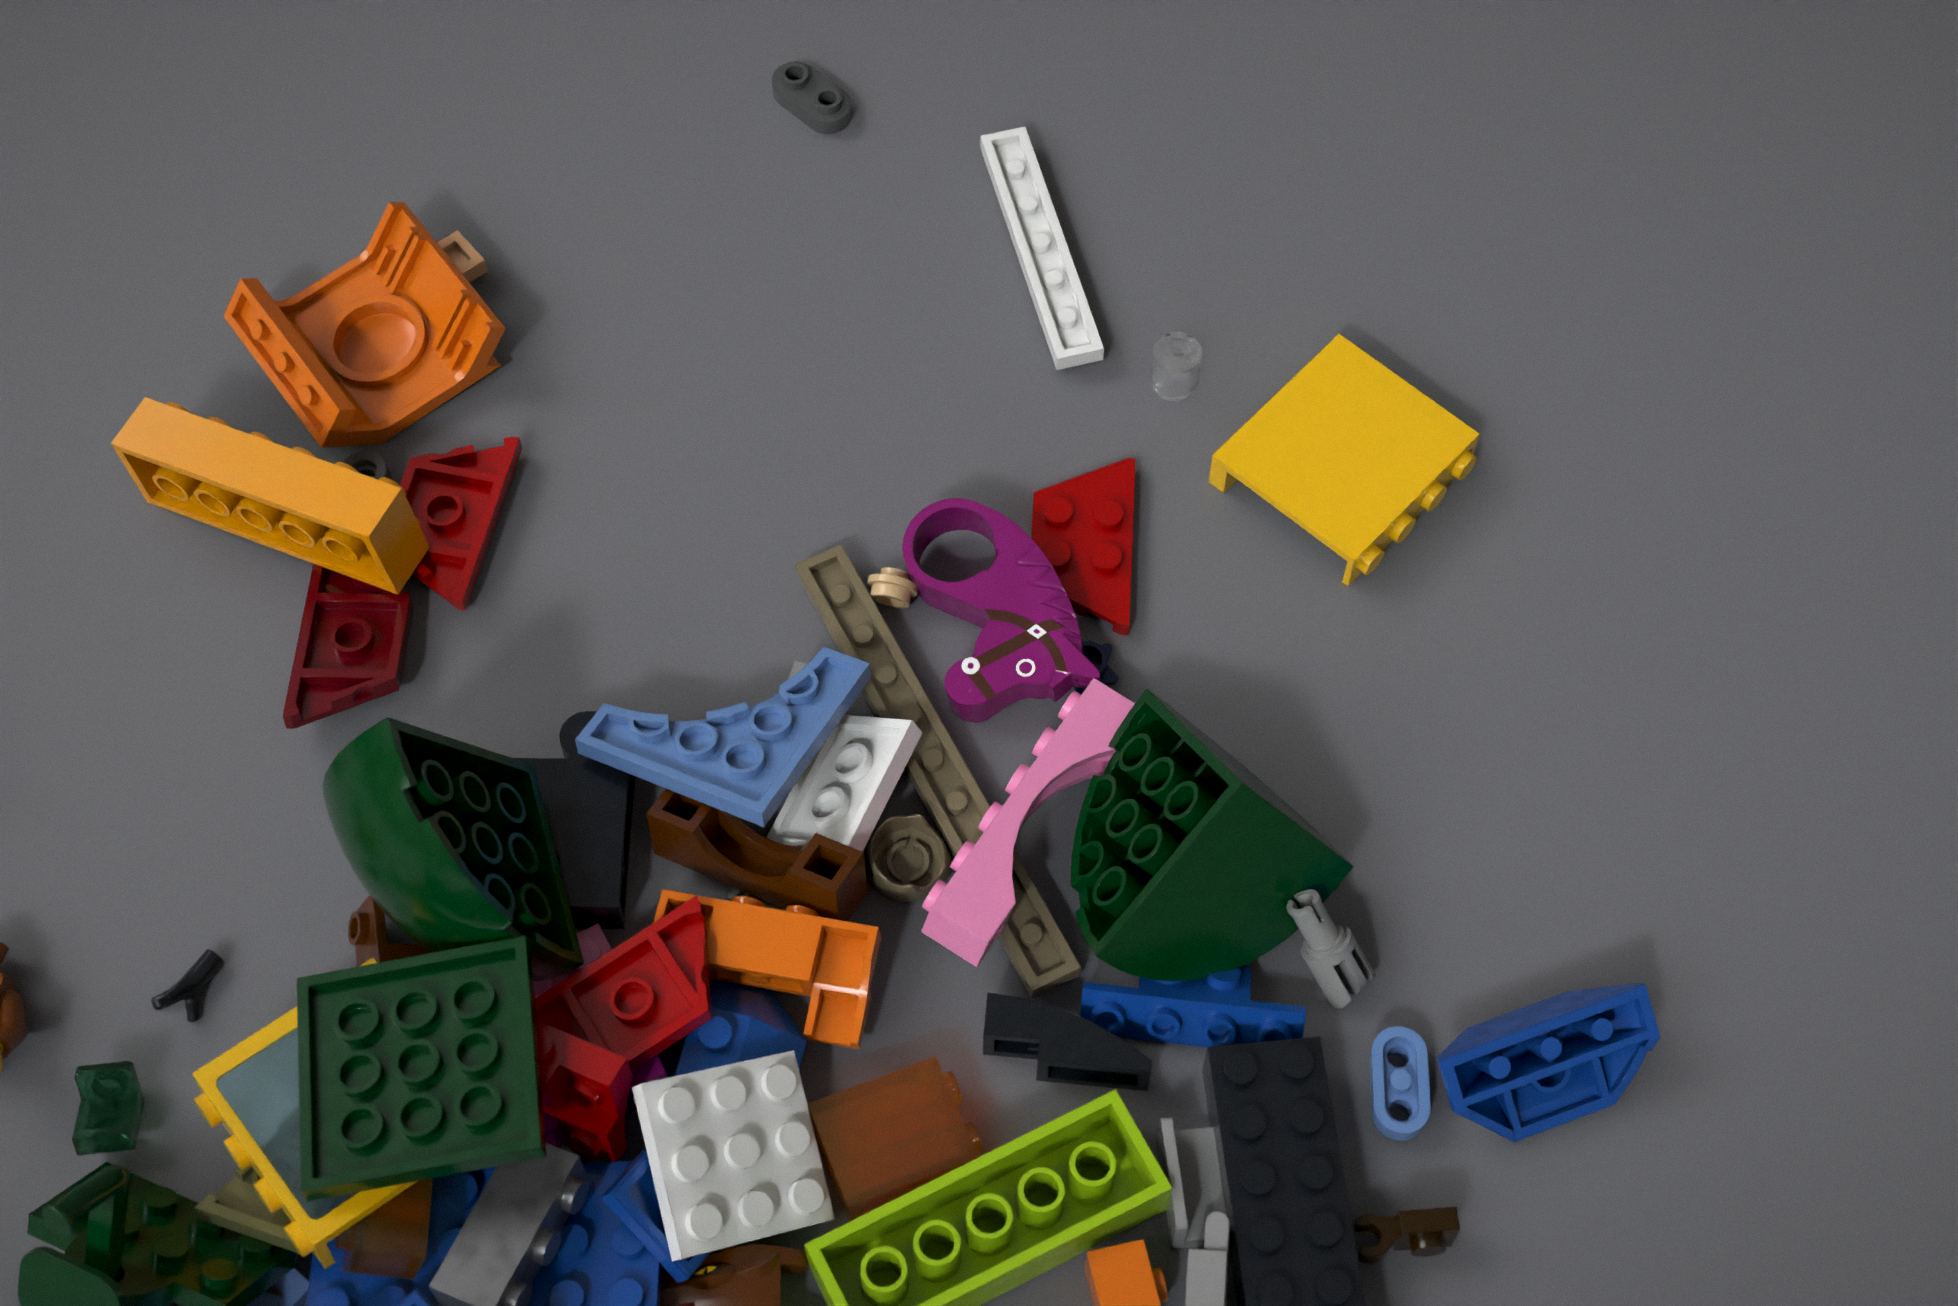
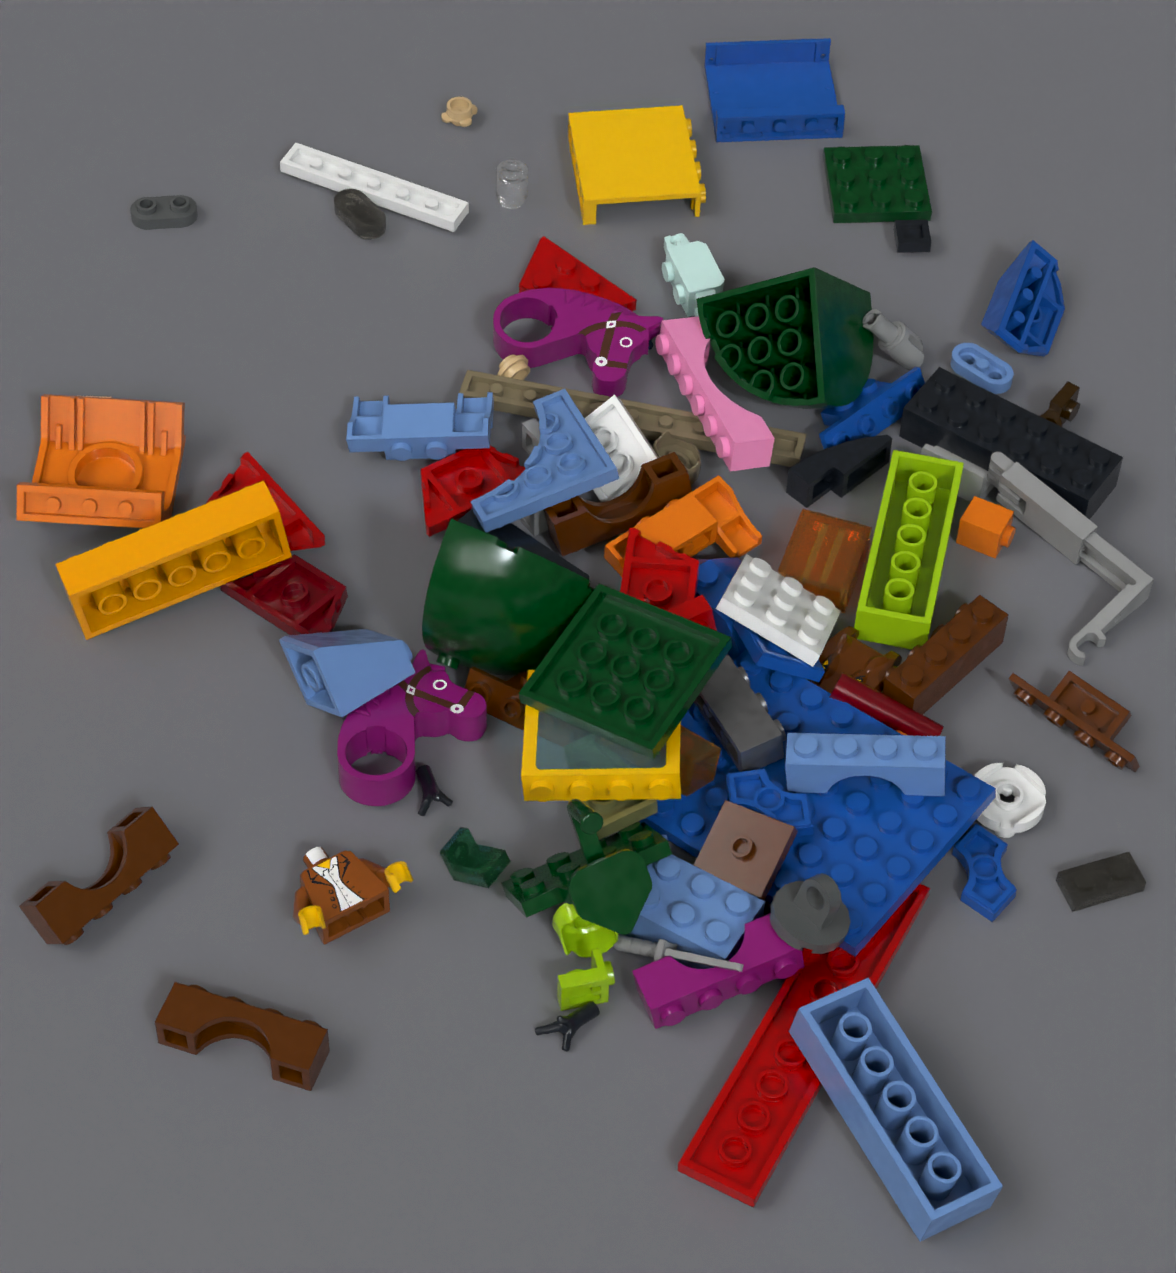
camera: 50 degrees left, 10 degrees down
(249, 870) = (391, 722): none -> magenta animal
(255, 766) = (346, 667): none -> medium blue slope
(667, 671) = (460, 479): none -> red wing
(698, 574) = (420, 429): none -> medium blue bracket
(985, 269) = (360, 214): none -> clear smoke plate
(1224, 655) = (690, 271): none -> light aqua hinge
(1250, 223) = (459, 112): none -> tan plate
(1547, 836) = (912, 236): none -> black plate
(1602, 731) = (876, 184): none -> dark green plate
(1632, 507) = (772, 90): none -> blue panel

